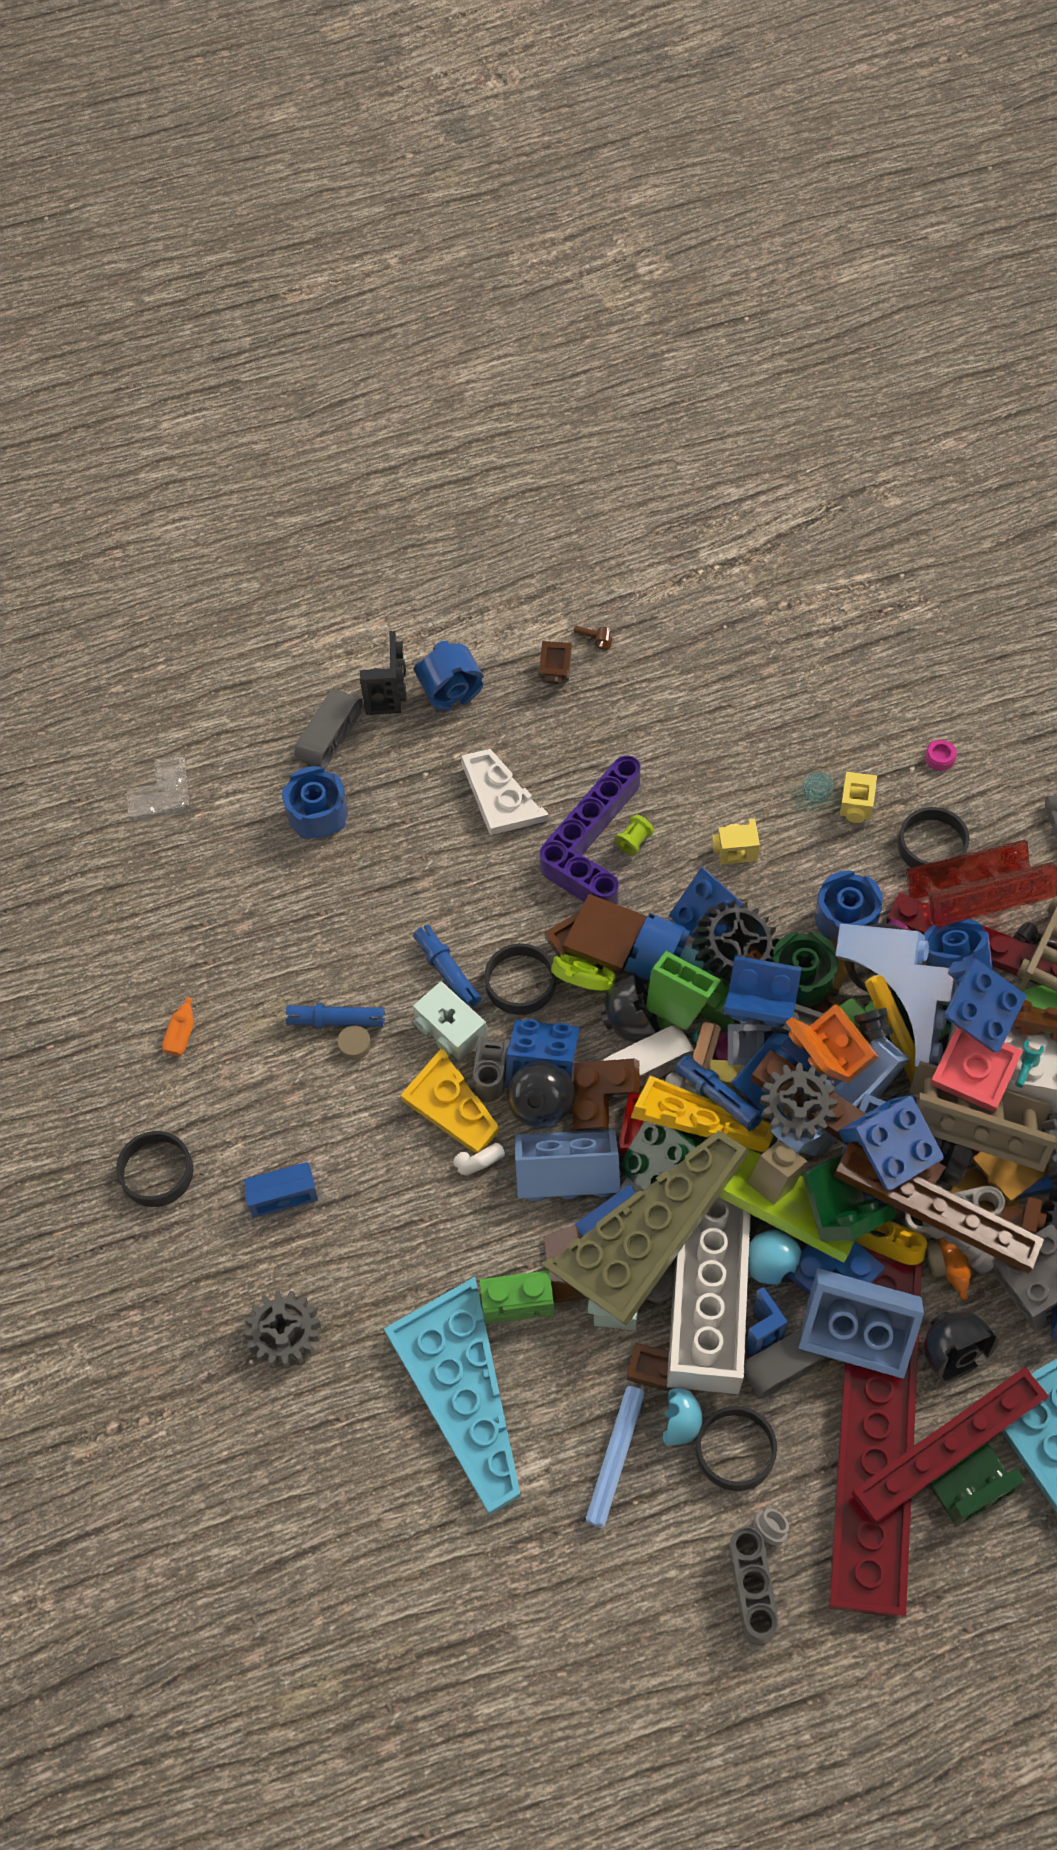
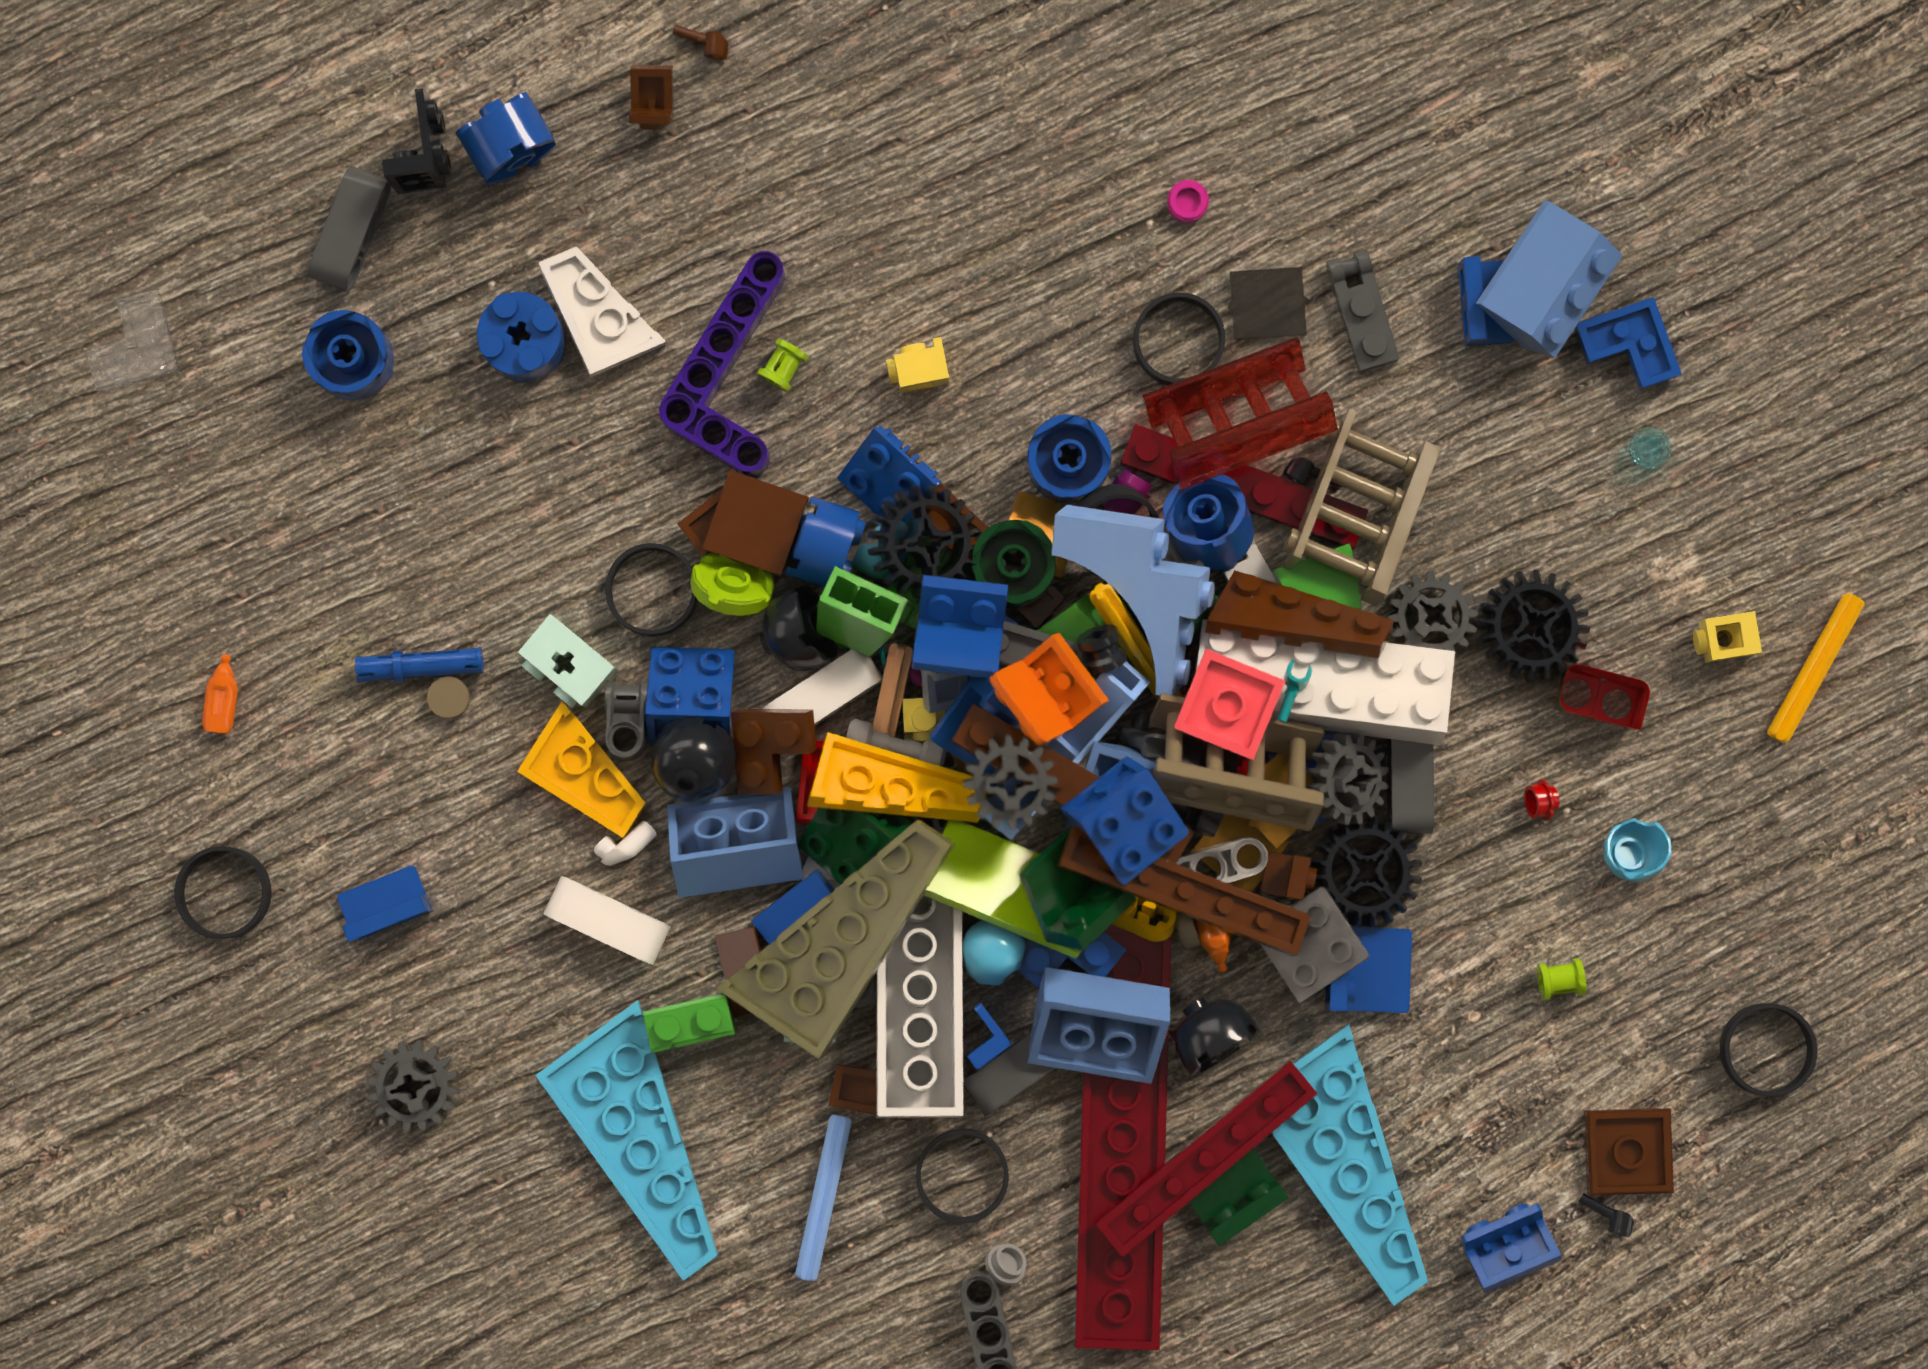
camera: 10 degrees left, 25 degrees up
(439, 956) = (545, 570): blue pin -> none
(443, 801) = (511, 315): none -> blue brick
(458, 1213) = (607, 920): none -> white beam
(683, 1416) = (902, 1152): medium azure hair -> none
(719, 1092) = (902, 739): blue pin -> none
(777, 1172) = (990, 861): dark tan brick -> none
(818, 786) = (1024, 266): clear light blue plate -> none
(858, 796) = (1079, 270): light yellow brick -> none
(983, 1003) = (1234, 631): blue bracket -> none
(999, 823) = (1268, 303): none -> clear smoke piece

